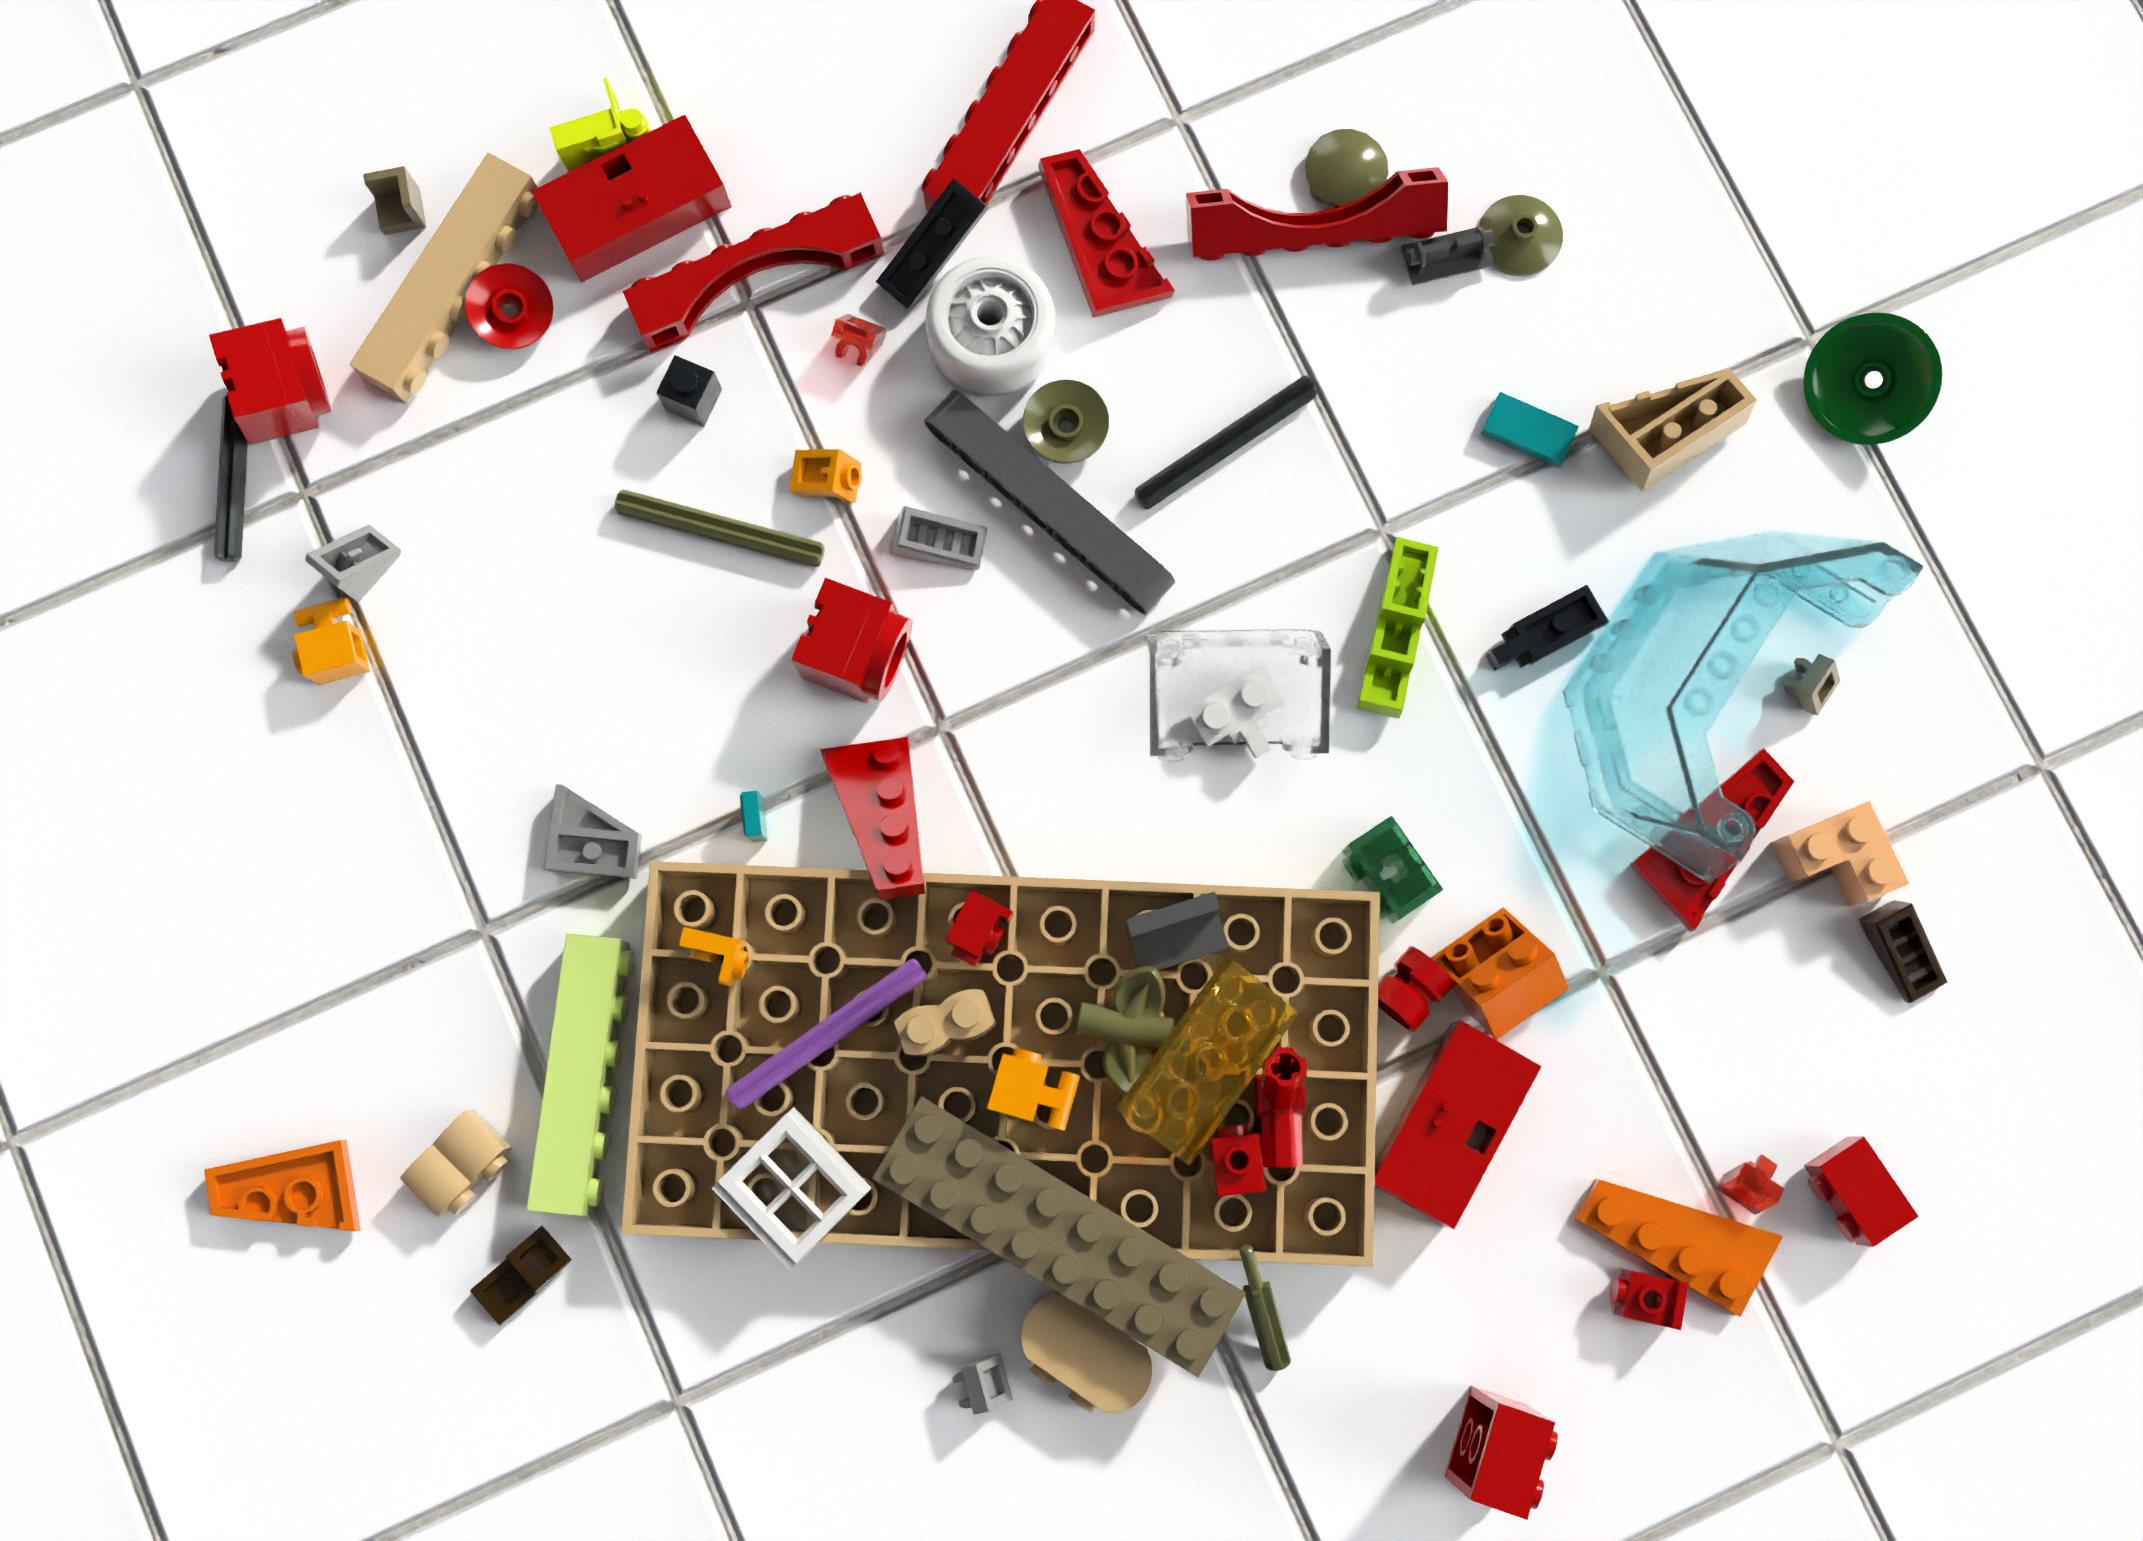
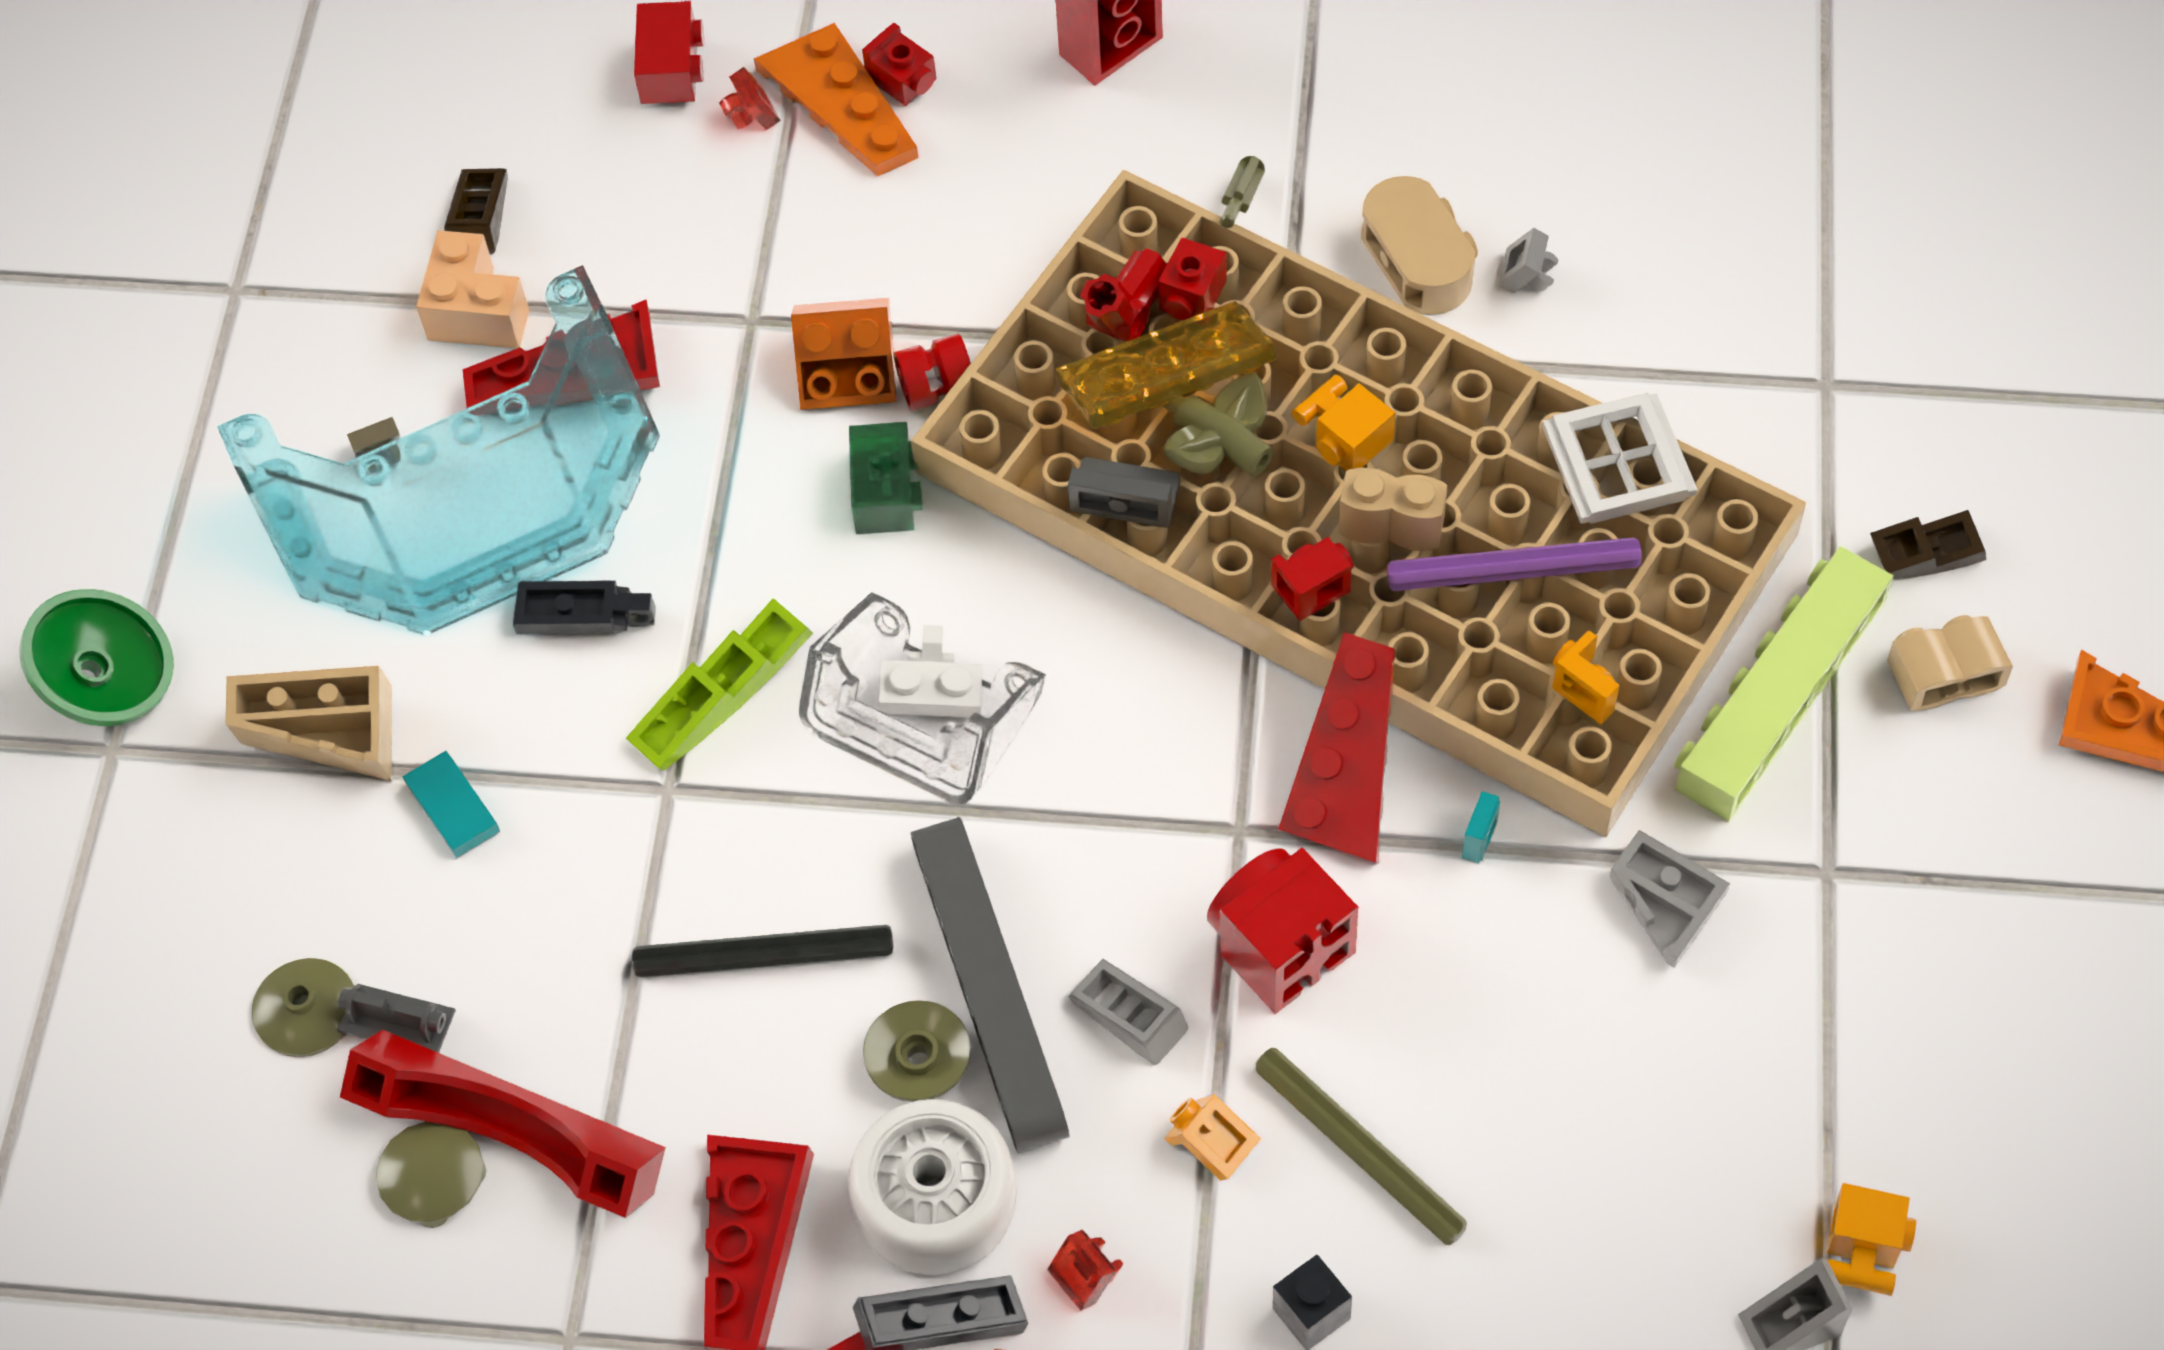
camera: 145 degrees left, 20 degrees down
(1059, 1236) = (1392, 314): dark tan plate -> none
(1454, 1123) = (969, 256): red brick -> none

